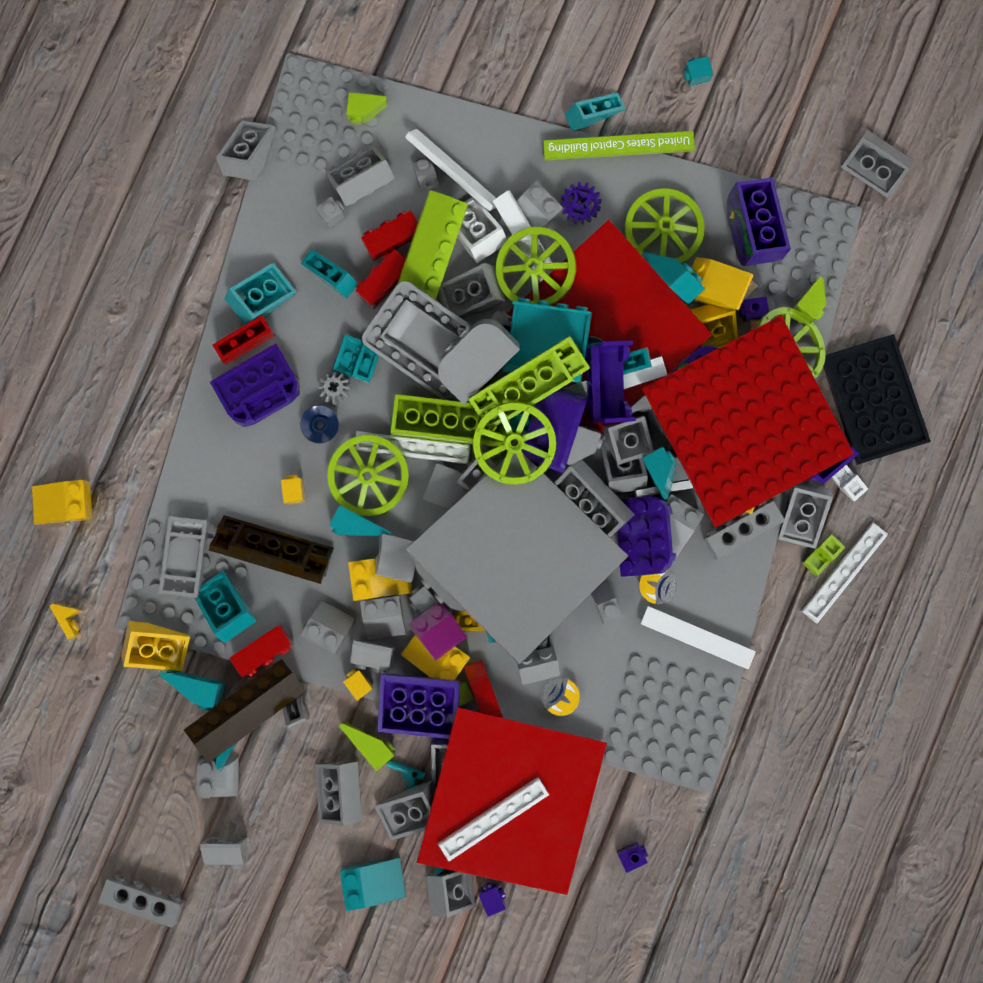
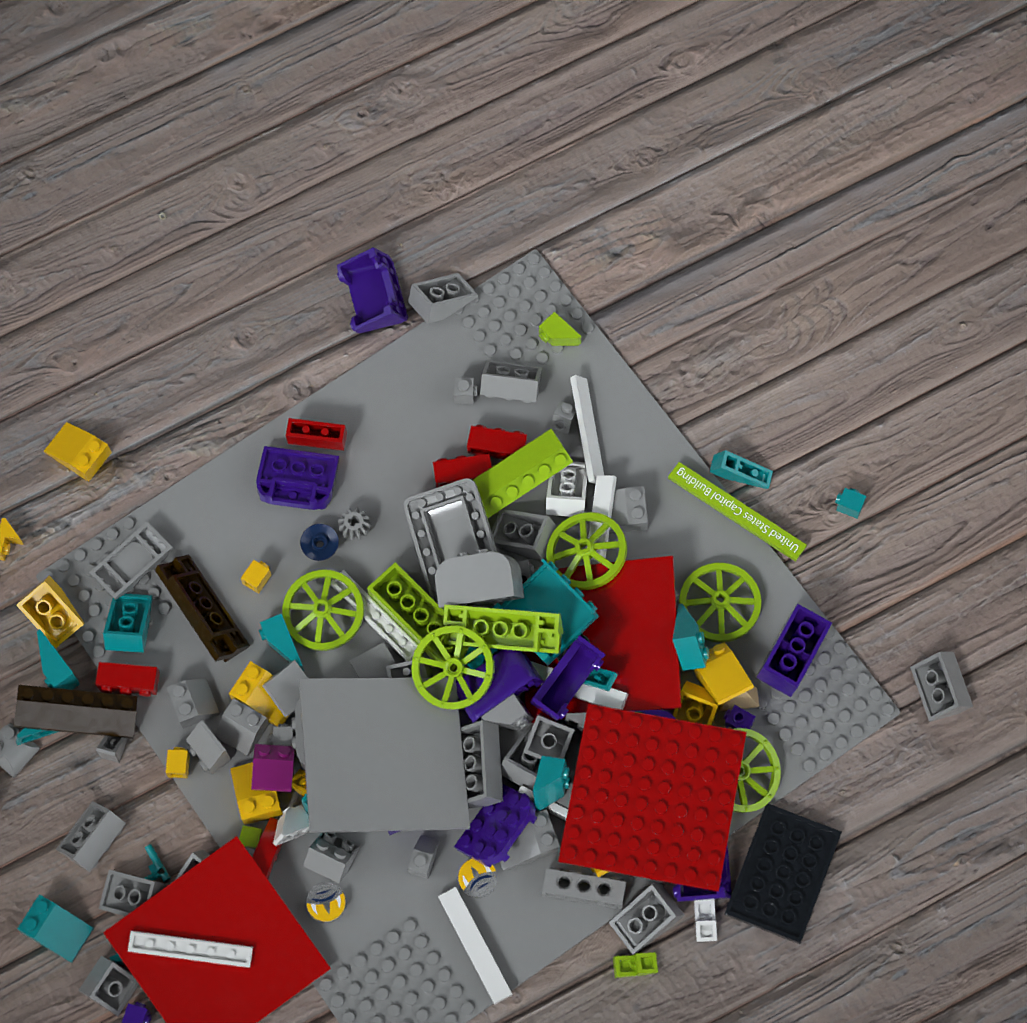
camera: 45 degrees right, 15 degrees down
(187, 187) = (373, 291): none -> dark purple windscreen
(259, 294) = (359, 410): teal slope -> none
(329, 273) = (425, 435): teal slope -> none
(355, 359) = (388, 515): teal slope -> none
(371, 747) = (146, 824): lime slope -> none
(417, 705) = (208, 812): dark purple slope -> none
(487, 661) = (291, 824): none -> white slope
(573, 207) = (677, 533): dark purple gear -> none
(813, 301) = (792, 751): lime slope -> none
(844, 572) = (641, 993): white tile -> none

